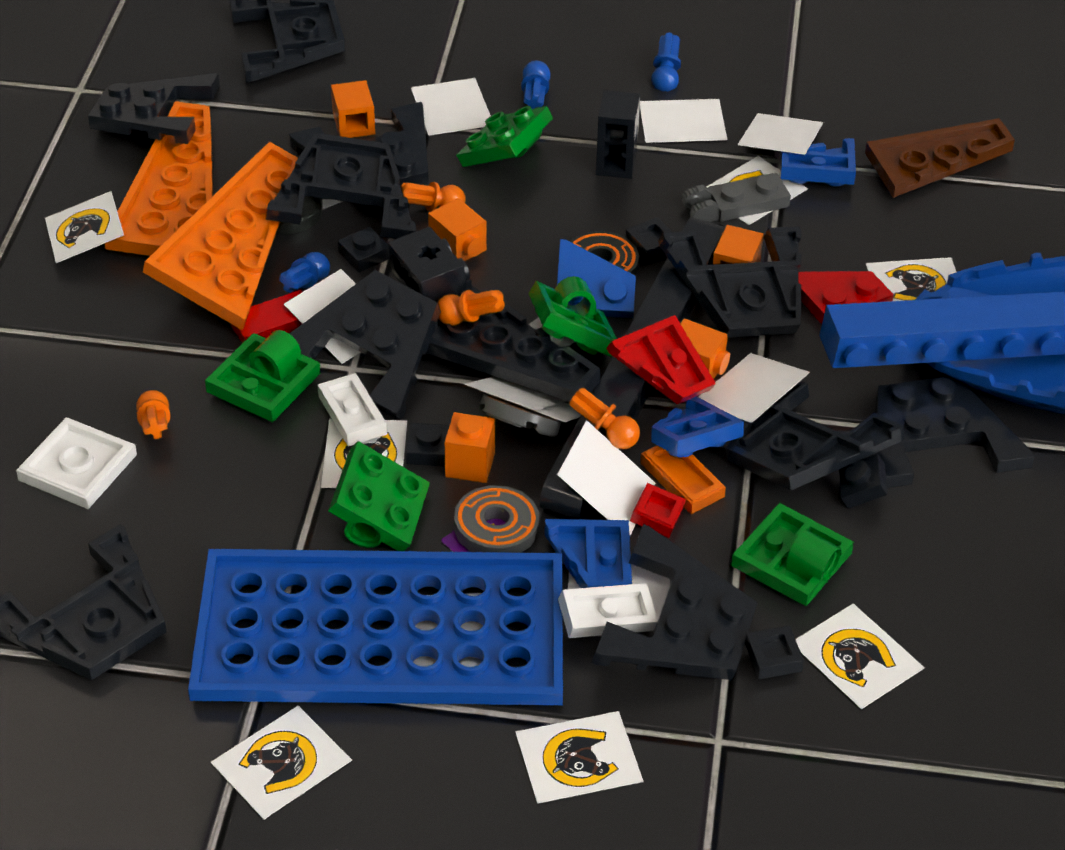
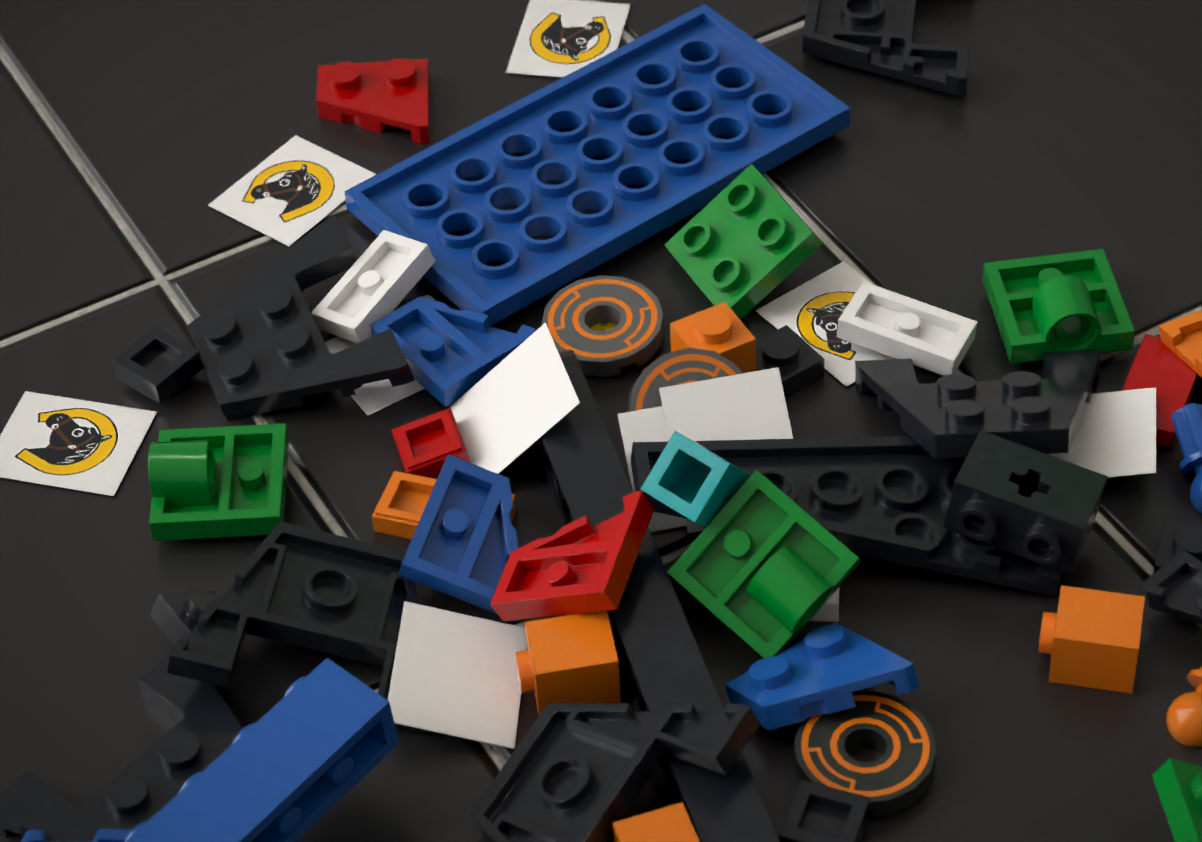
camera: 145 degrees right, 0 degrees up
(76, 462) = (1116, 127): white tile -> none
(153, 412) = (1130, 219): orange axle -> none
(457, 788) = (377, 95): none -> red wing
(469, 306) = (905, 481): orange axle -> none
(575, 339) = (693, 480): none -> teal brick
(620, 430) = (539, 447): orange axle -> none

